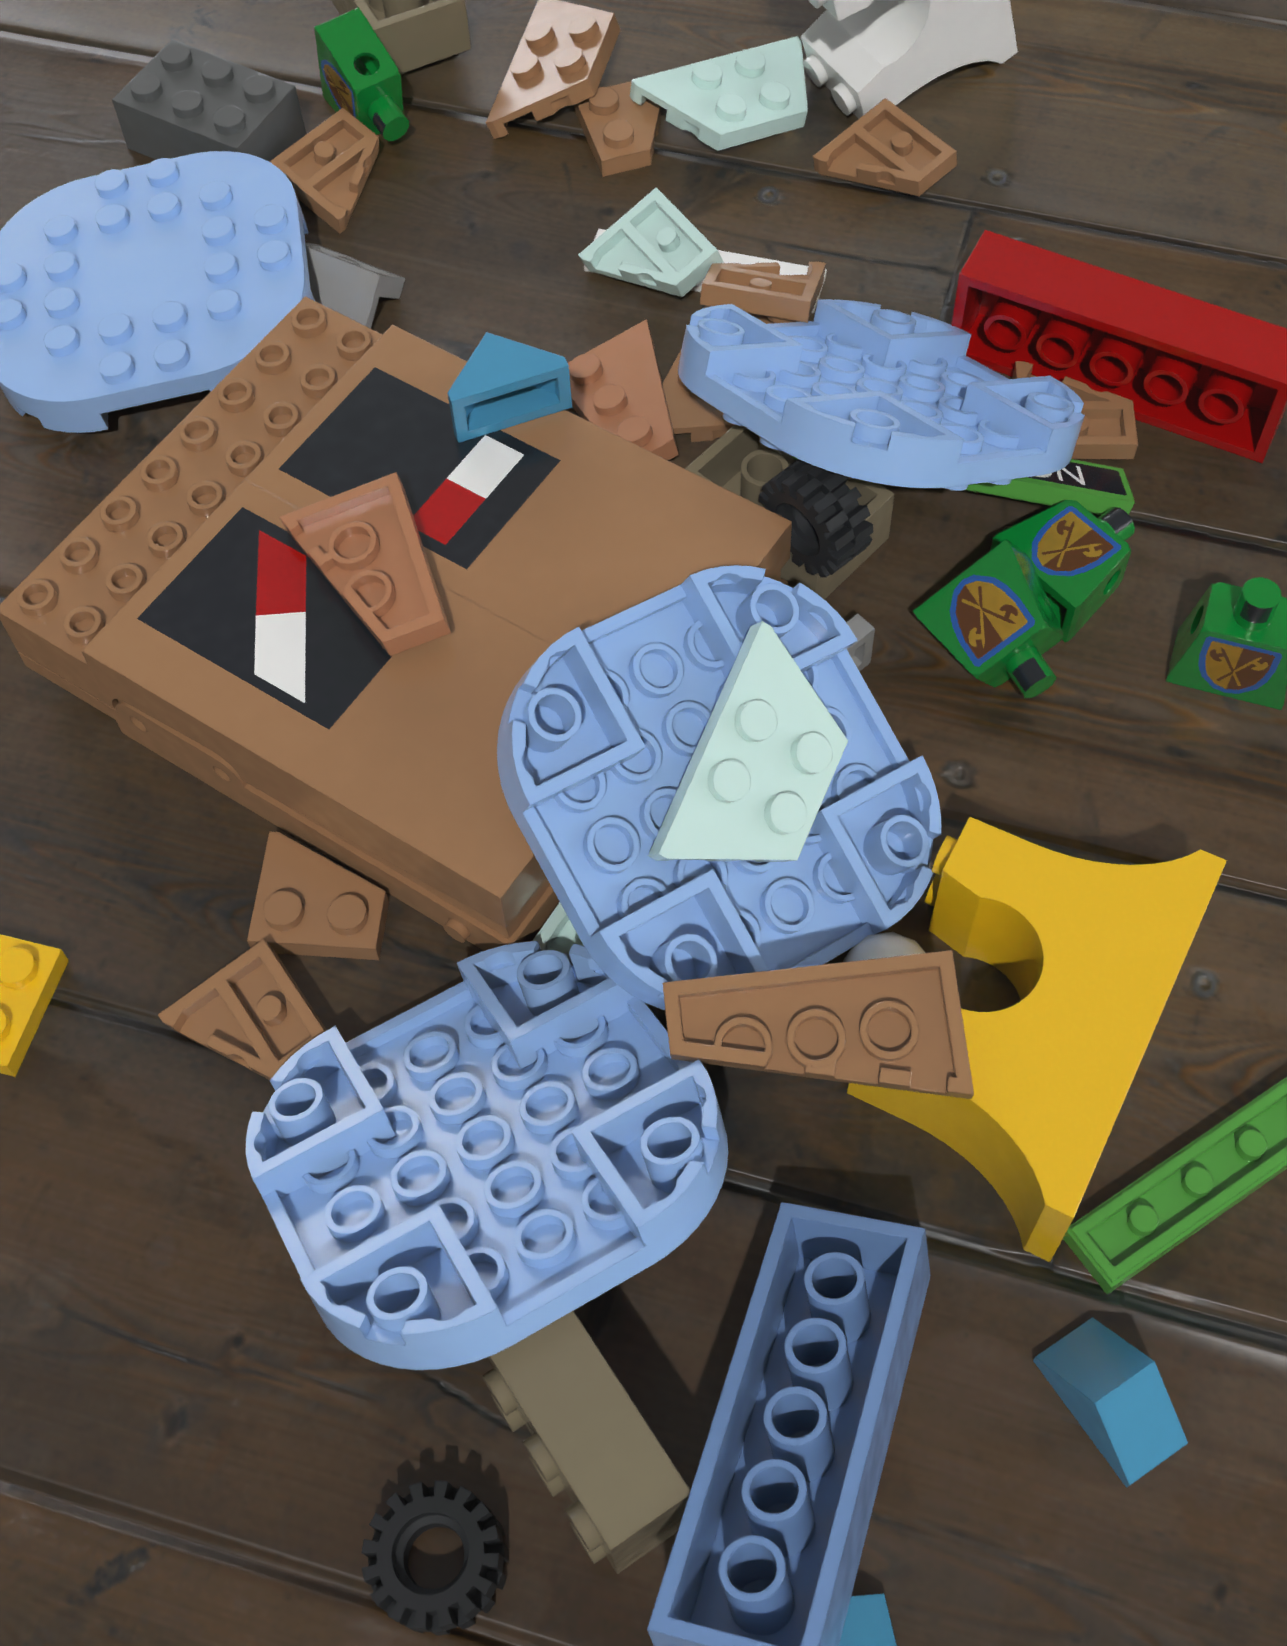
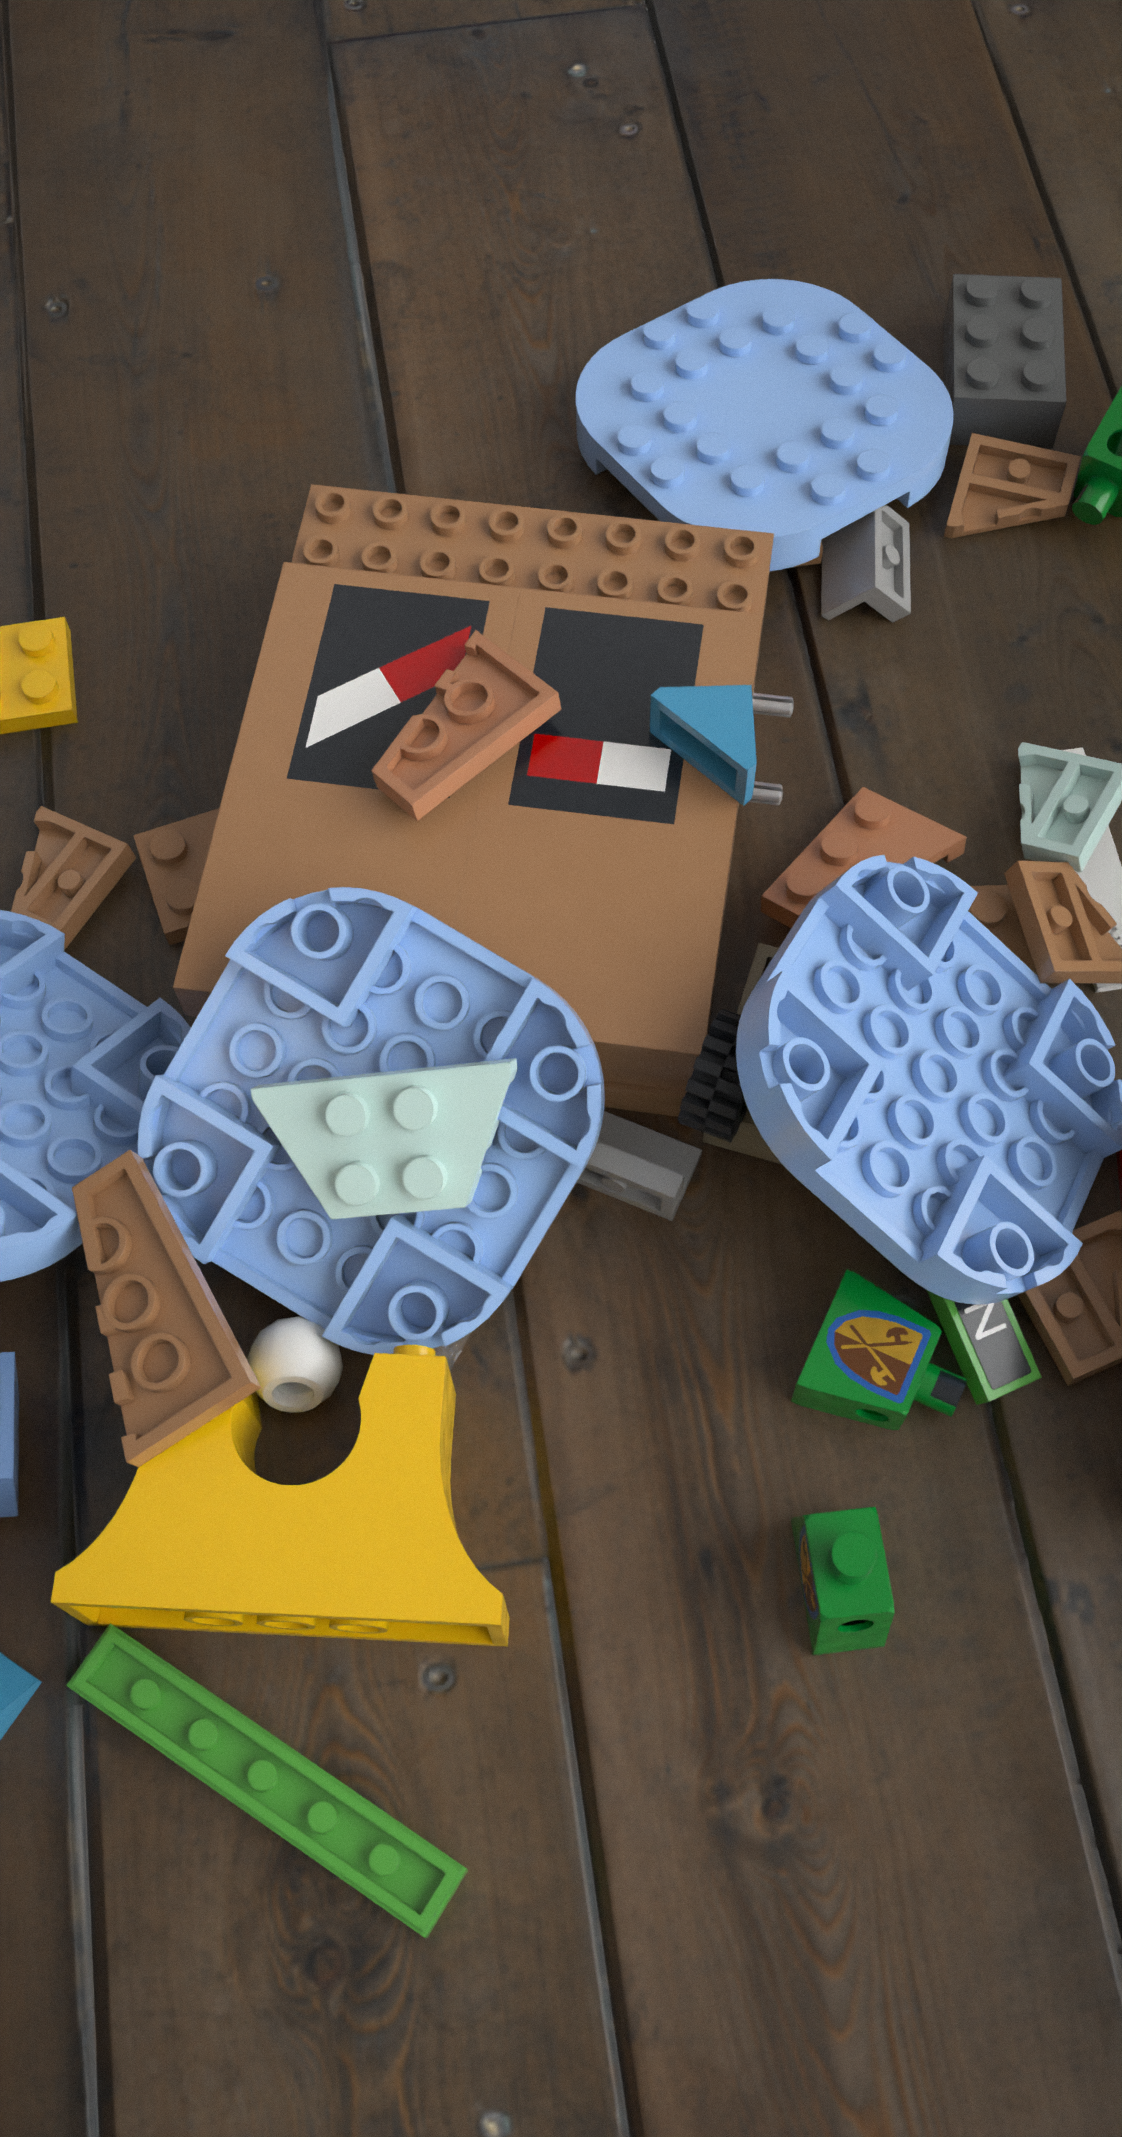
camera: 65 degrees right, 5 degrees up
(997, 621) = (745, 1313): torso -> none

